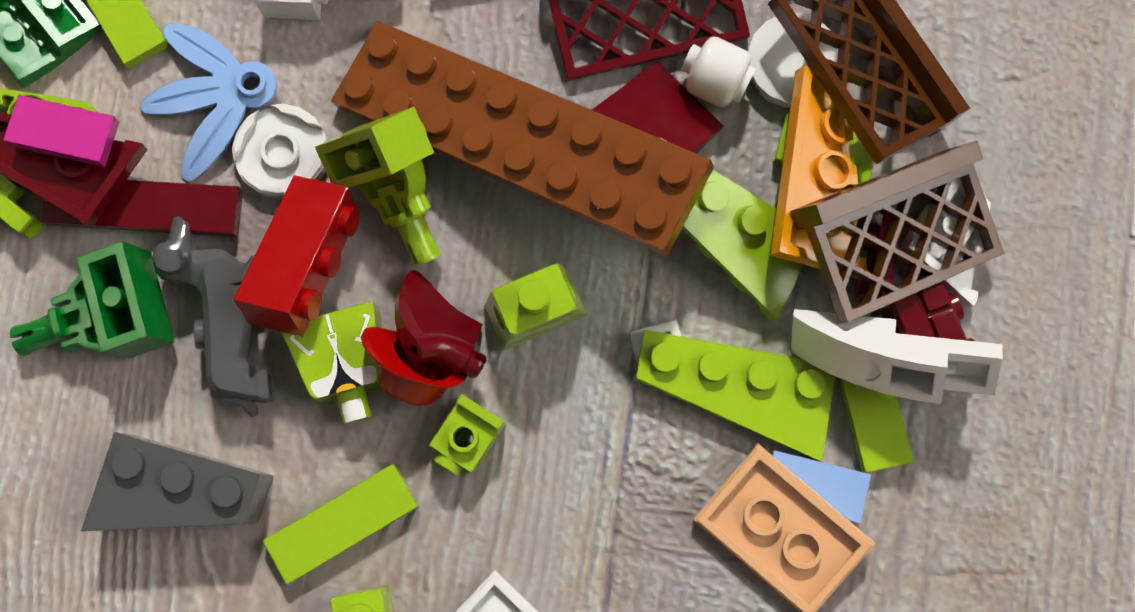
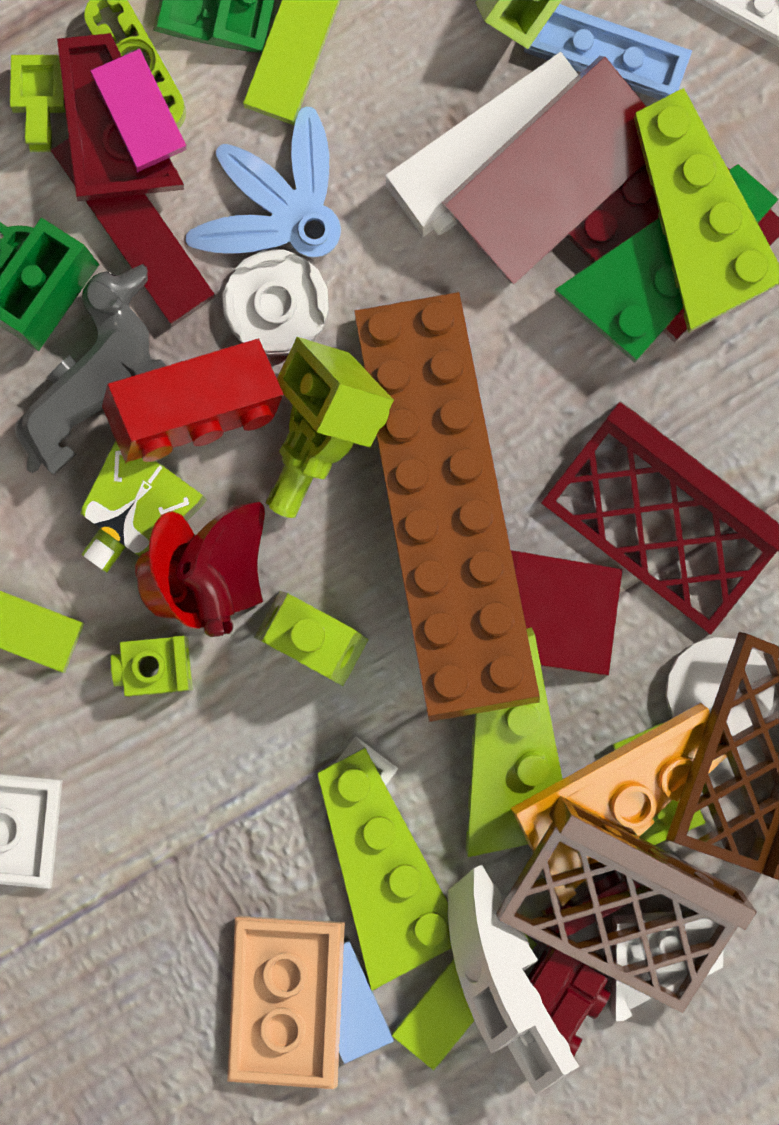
camera: 55 degrees right, 5 degrees up
(718, 71) = (649, 633): white head -> none

